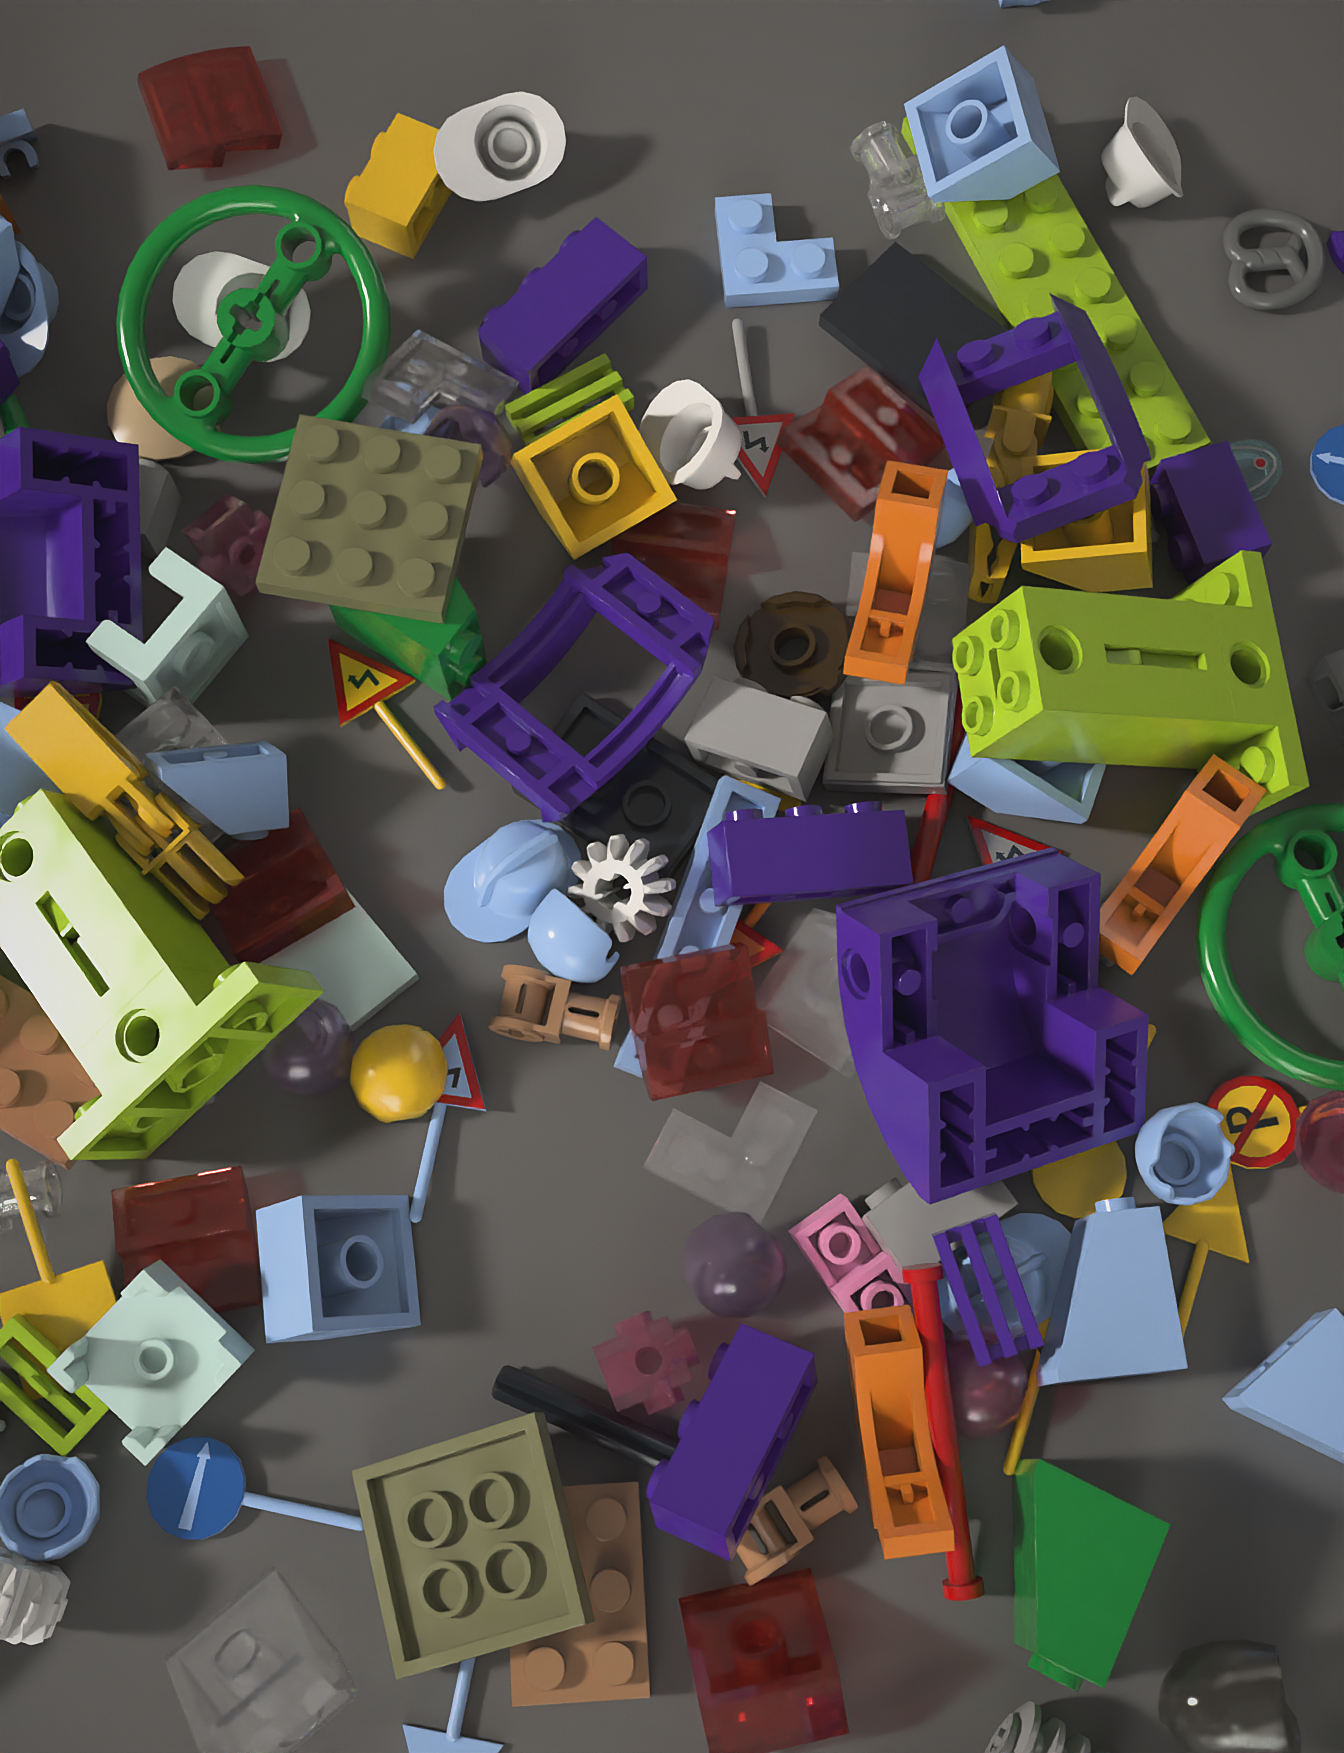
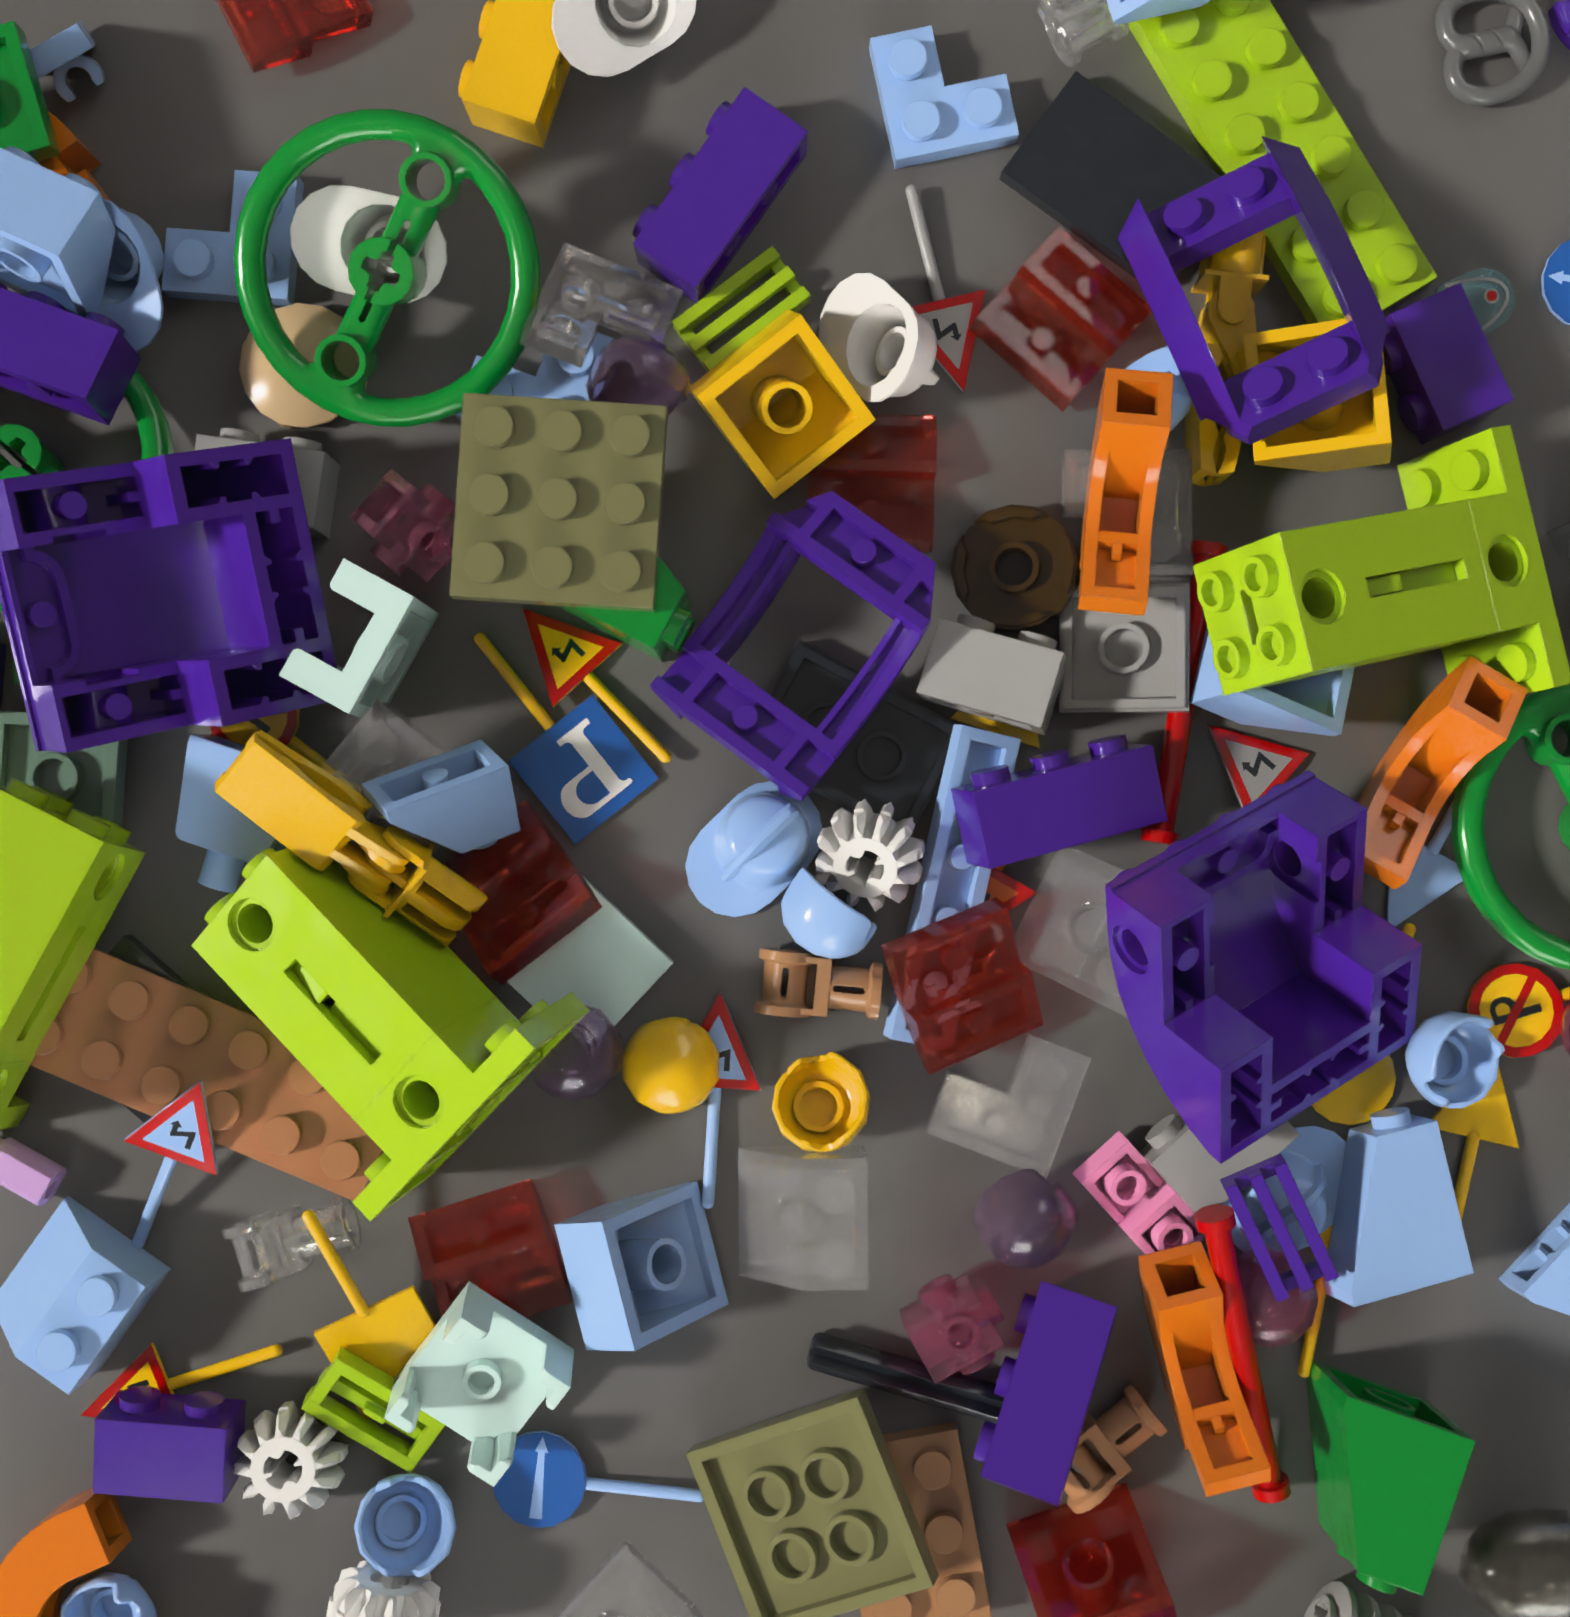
camera: 10 degrees left, 15 degrees up
(89, 314) = (202, 261): none -> light blue plate
(358, 783) = (581, 764): none -> blue piece
(510, 1235) = (804, 1217): none -> clear slope
(543, 1122) = (821, 1102): none -> yellow hair
(1165, 978) = (1428, 880): none -> light blue piece

